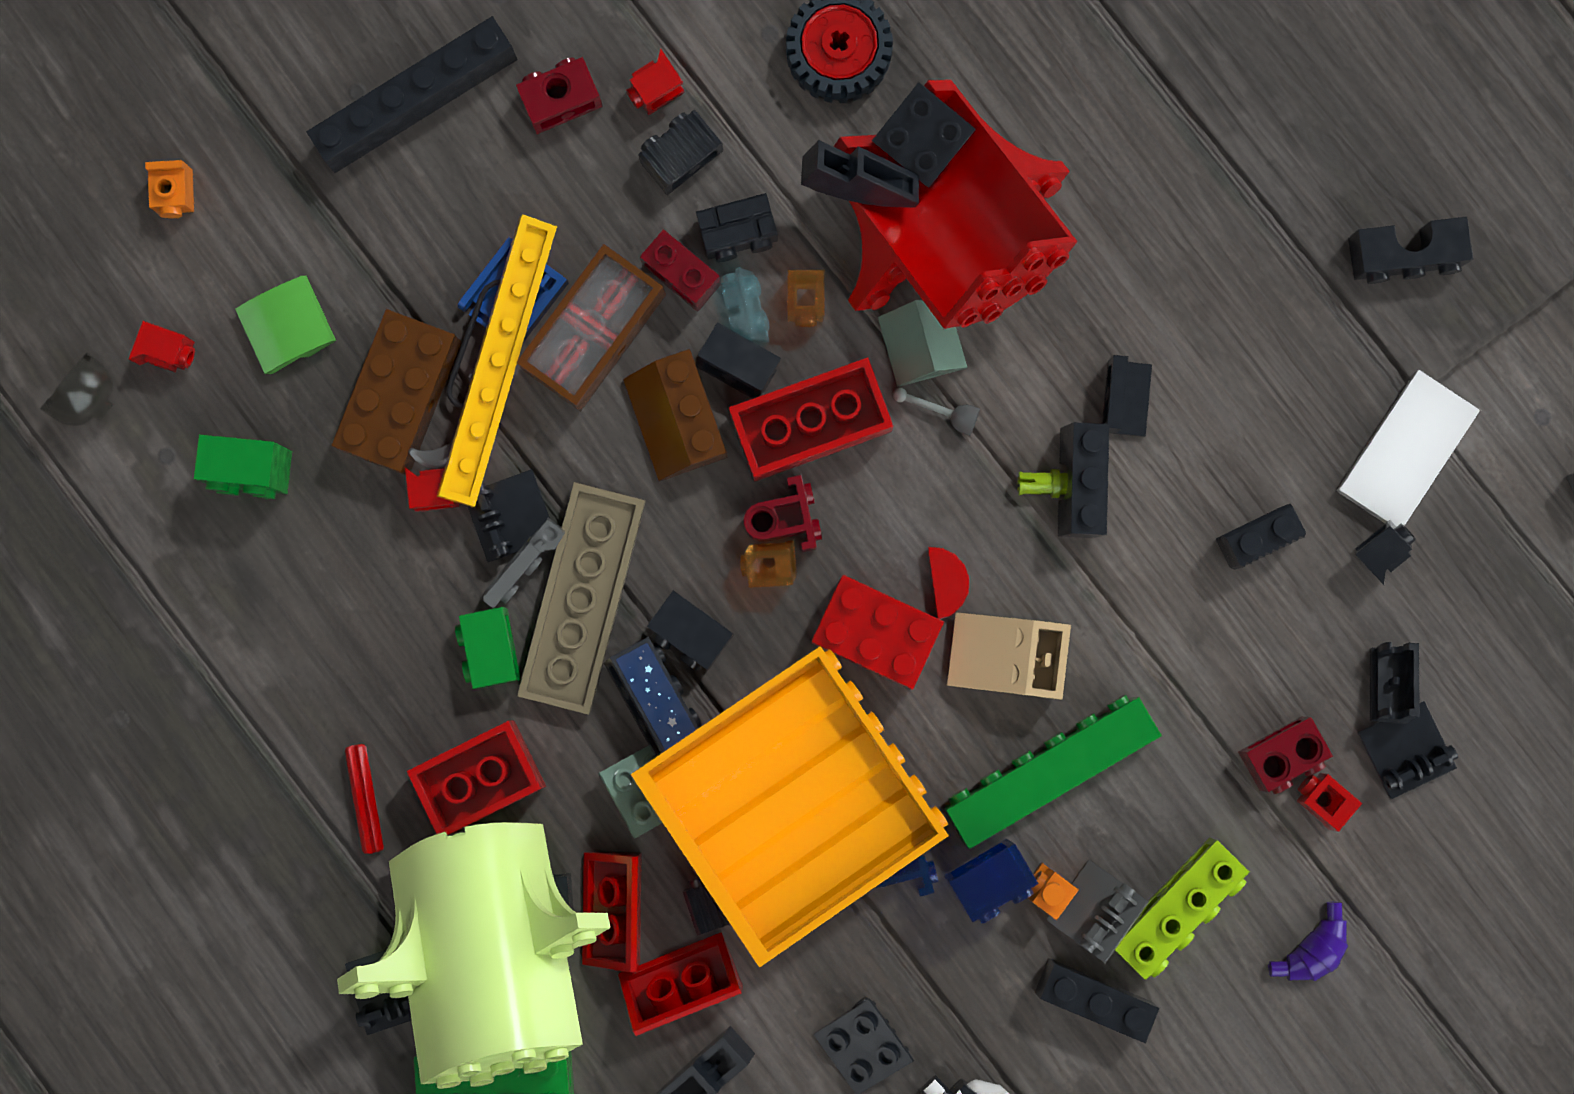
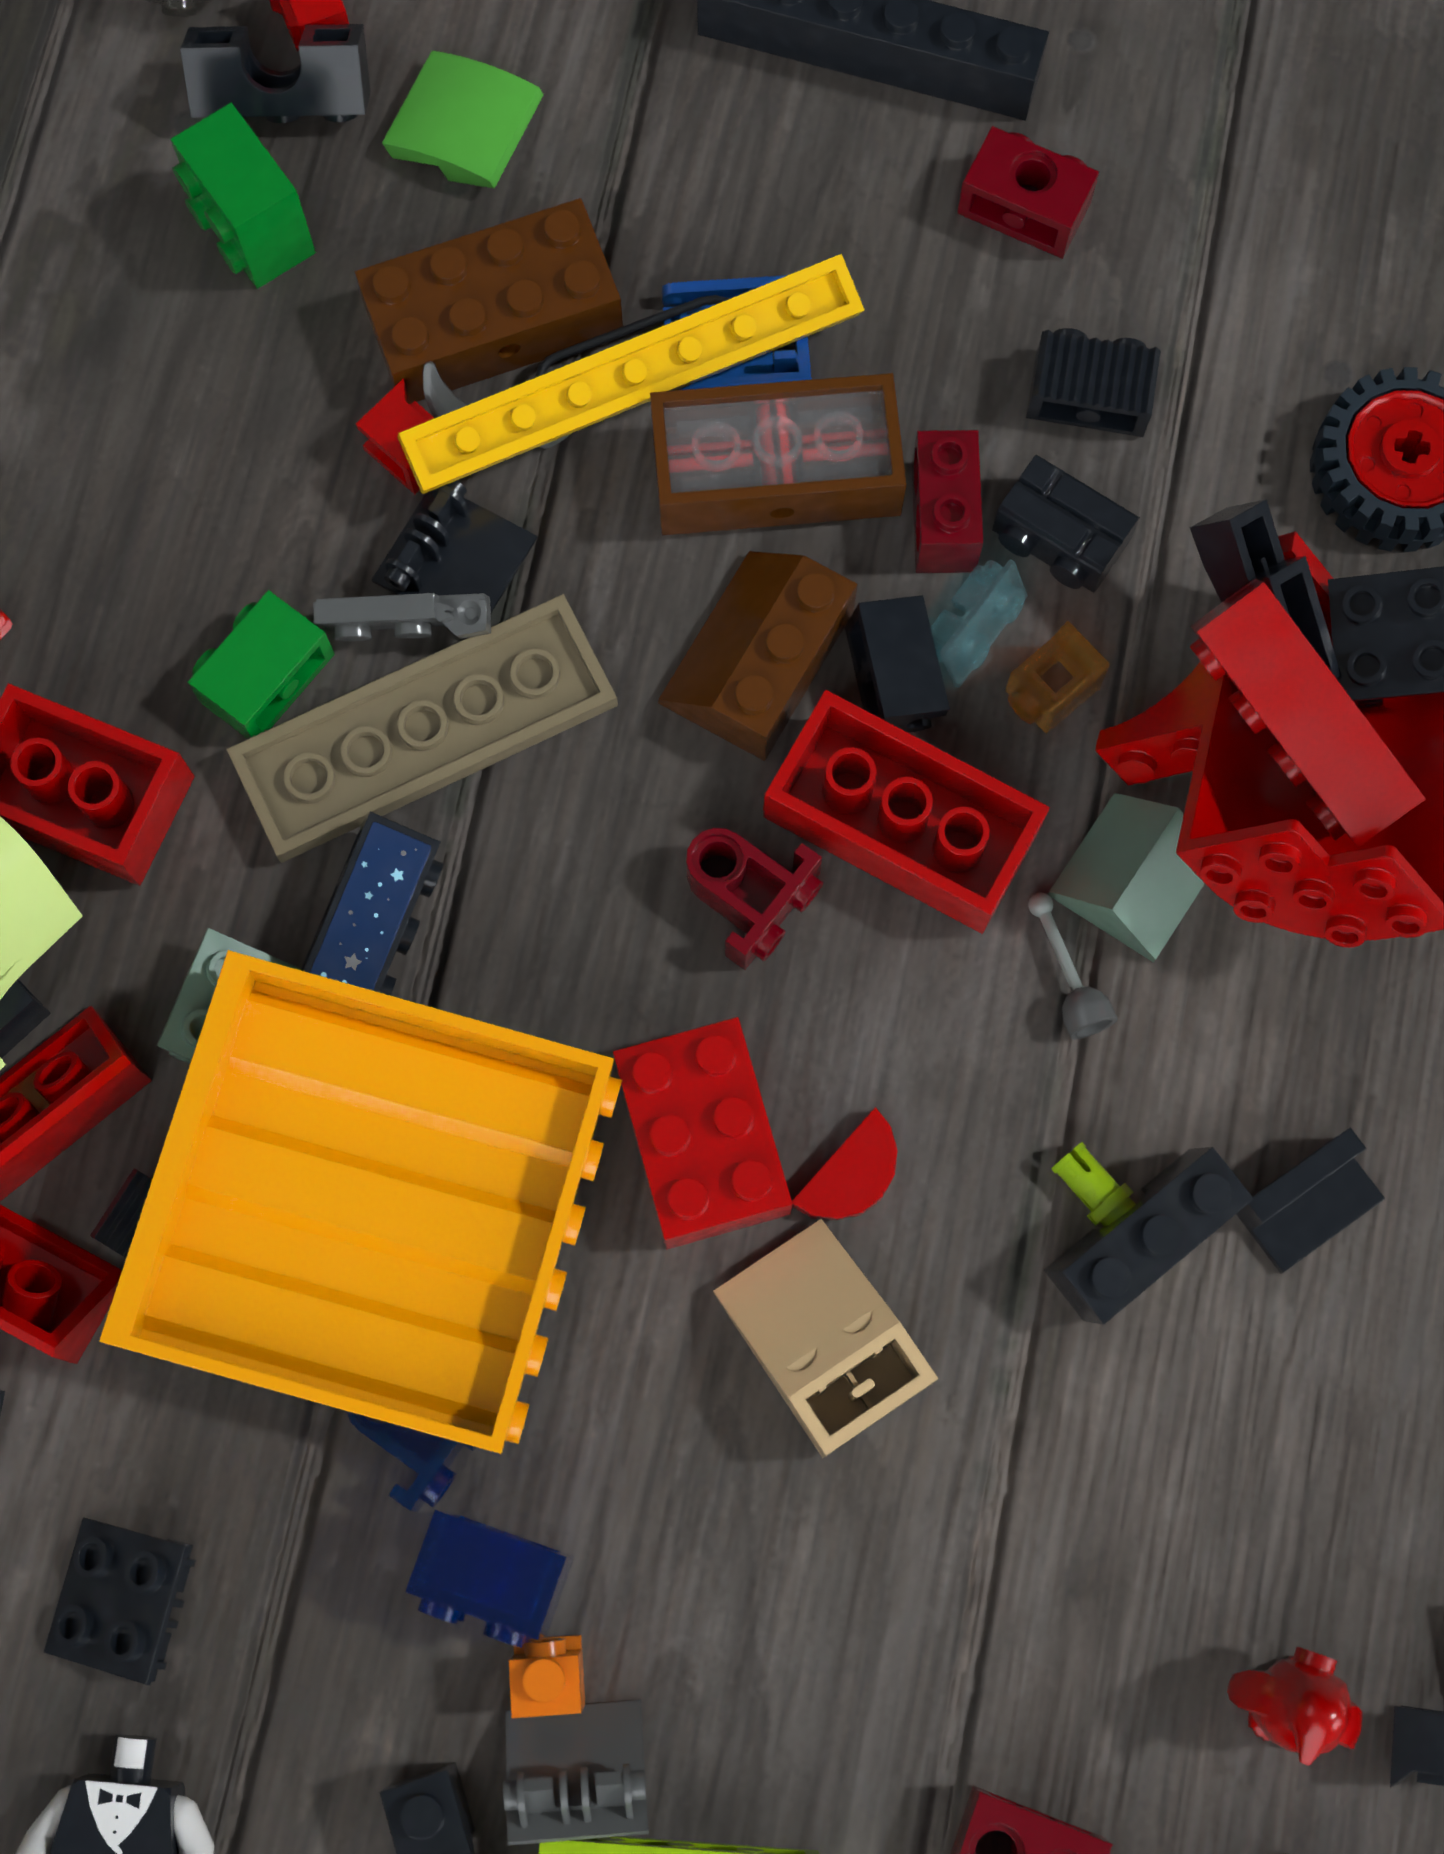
camera: 50 degrees right, 10 degrees down
(174, 418) = (326, 83): none -> black arch
(655, 85) = (1146, 288): red window -> none
(690, 631) = (495, 894): black brick -> none
(760, 575) = (689, 938): clear orange brick -> none
(930, 217) = (1307, 712): none -> red brick
(1051, 772) = (717, 1535): green brick -> none
(1261, 537) = (1296, 1549): black brick -> none
(1322, 593) = (1299, 1705): none -> red animal

